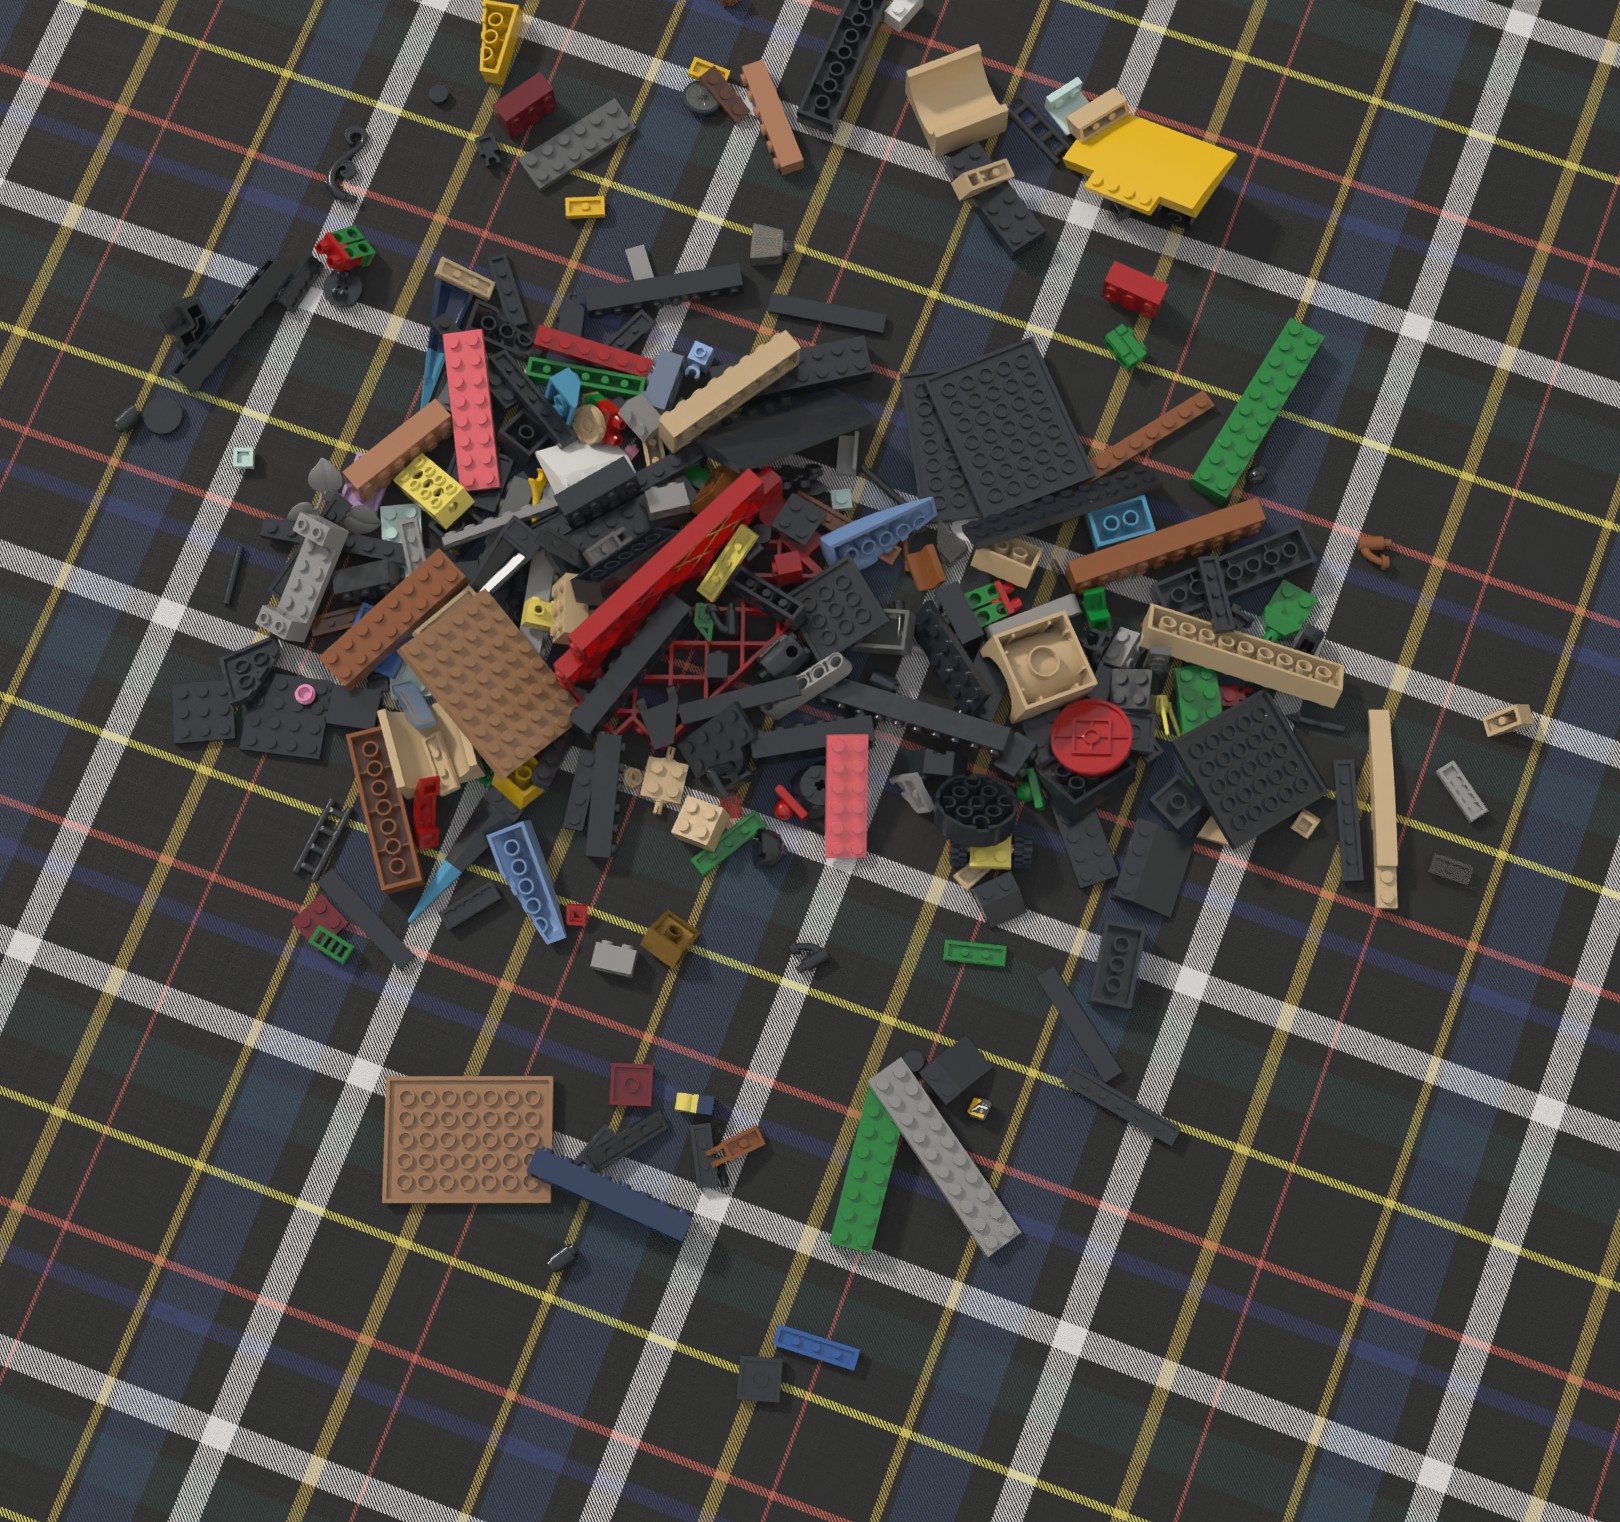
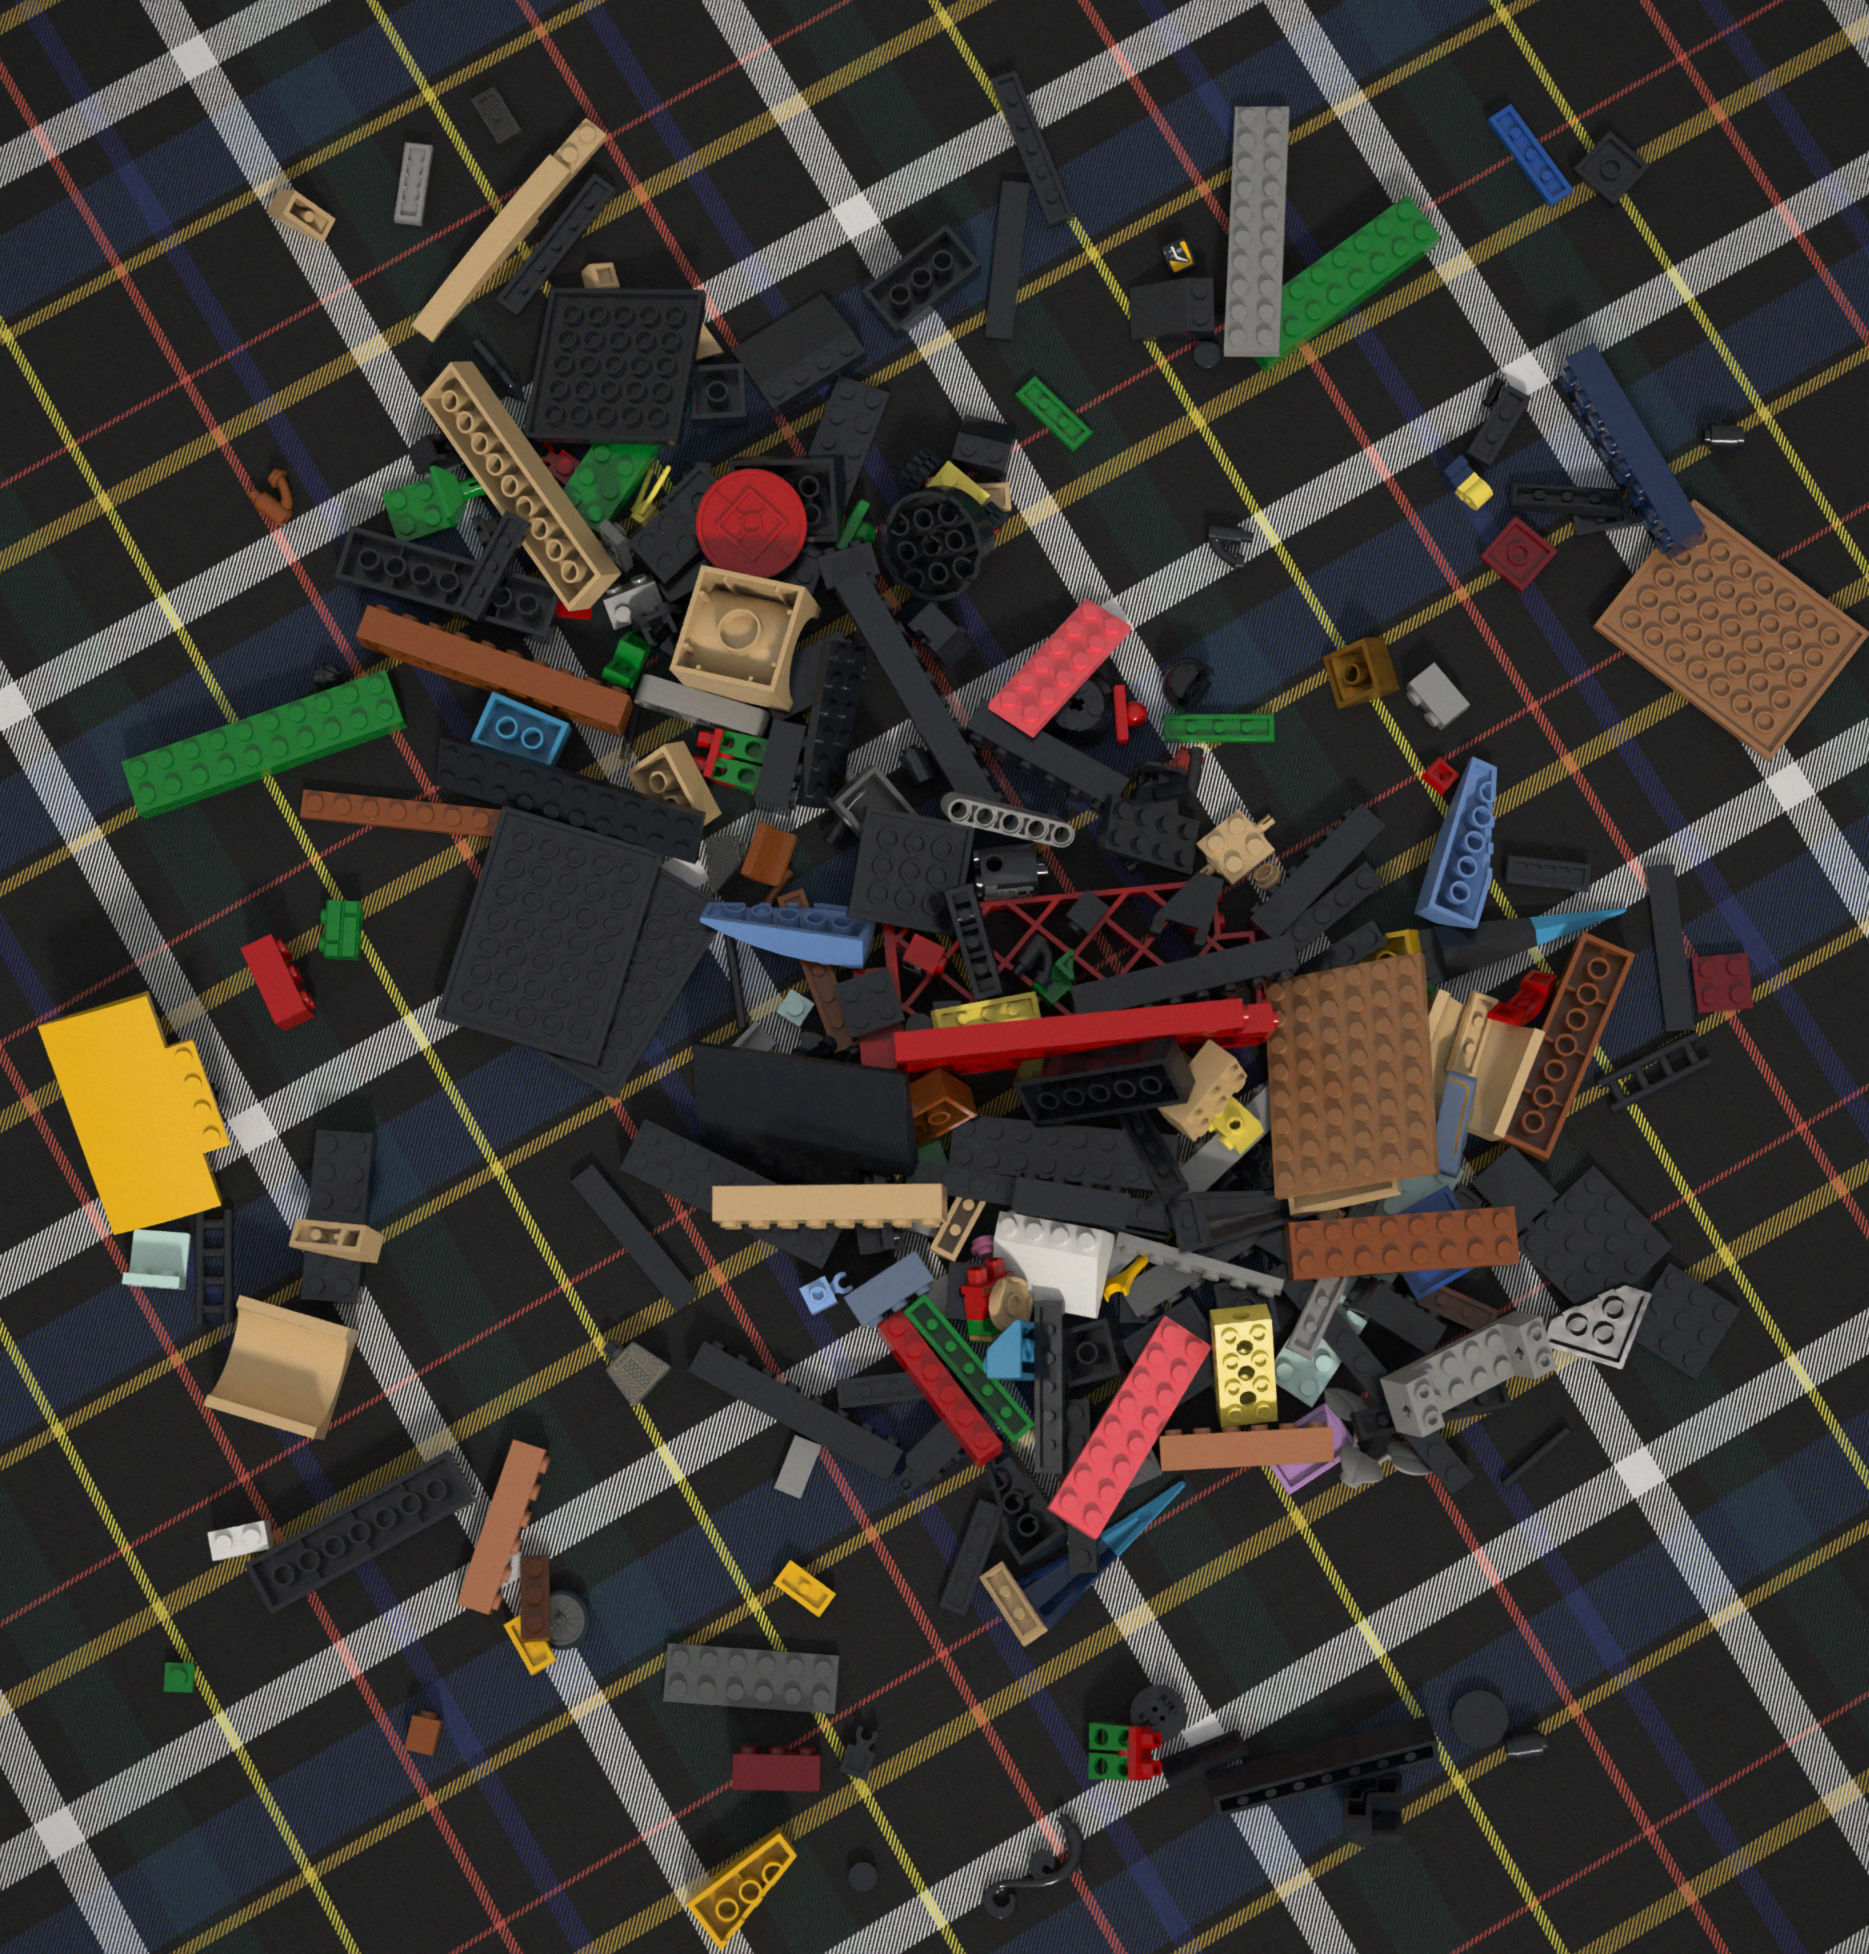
camera: 145 degrees left, 5 degrees up
(244, 458) = (1424, 1589): light aqua plate -> none
(305, 694) = (1557, 1246): bright pink plate -> none
(350, 948) = (1727, 922): green slope -> none
(605, 546) = (1108, 1129): flat silver hinge -> none
(641, 417) = (948, 1257): light grey brick -> none
(666, 500) = (997, 1140): light grey brick -> none
(700, 823) = (1236, 765): tan brick -> none
(738, 1145) = (1458, 407): dark orange hinge -> none
(747, 697) = (1087, 856): black tile -> none
(914, 791) = (980, 623): light grey wing -> none
(1097, 115) = (139, 1222): tan brick -> none

